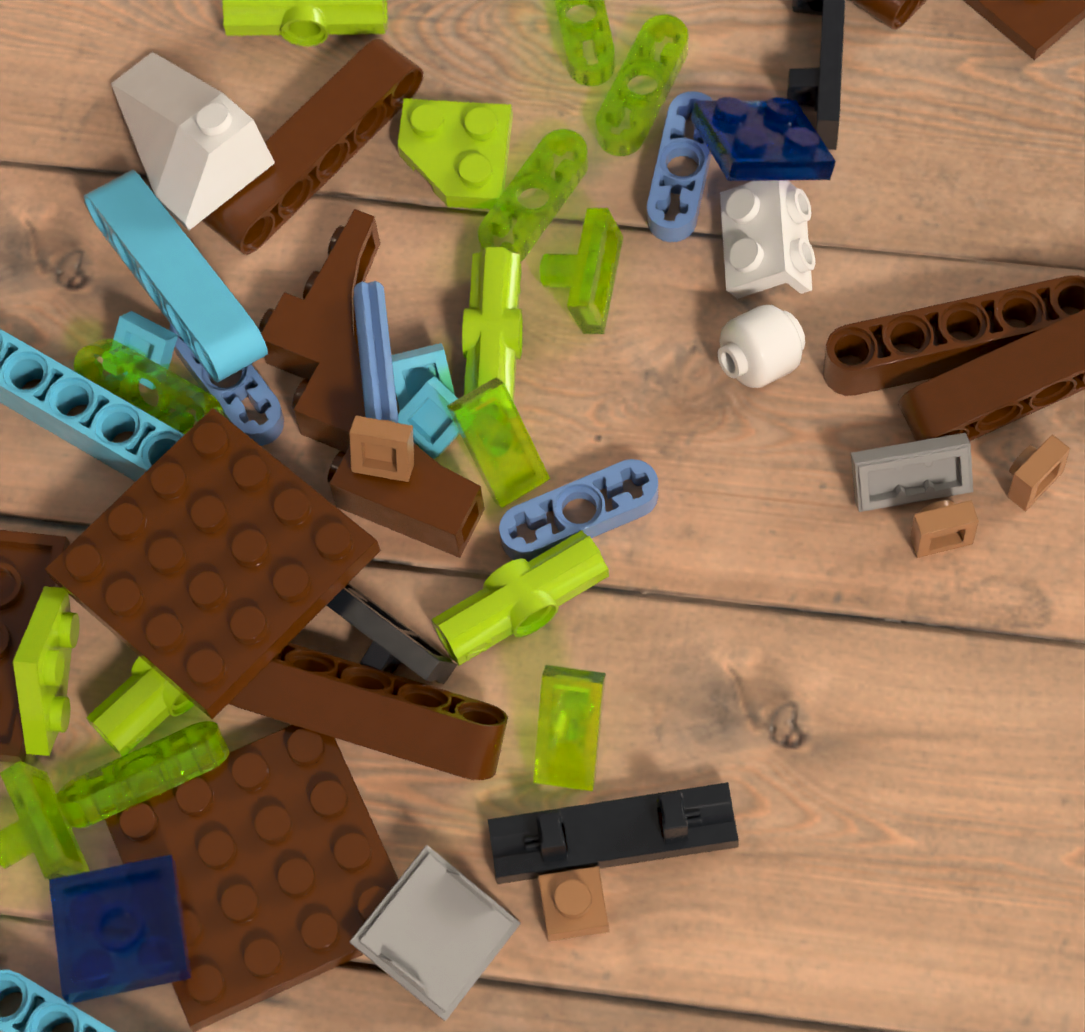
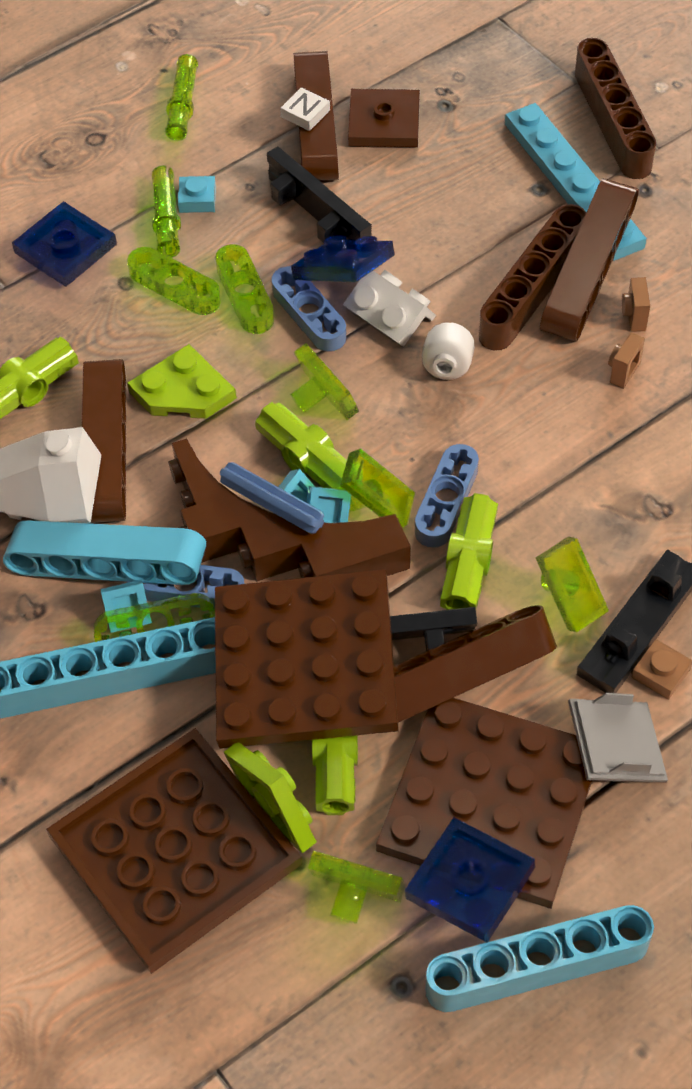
camera: 50 degrees left, 10 degrees down
(142, 774) = (372, 825): clear neon green beam -> none
(382, 448) = (332, 530): medium nougat plate -> none
(536, 174) = (253, 364): clear neon green beam -> none
(912, 472) = (583, 348): light grey plate -> none

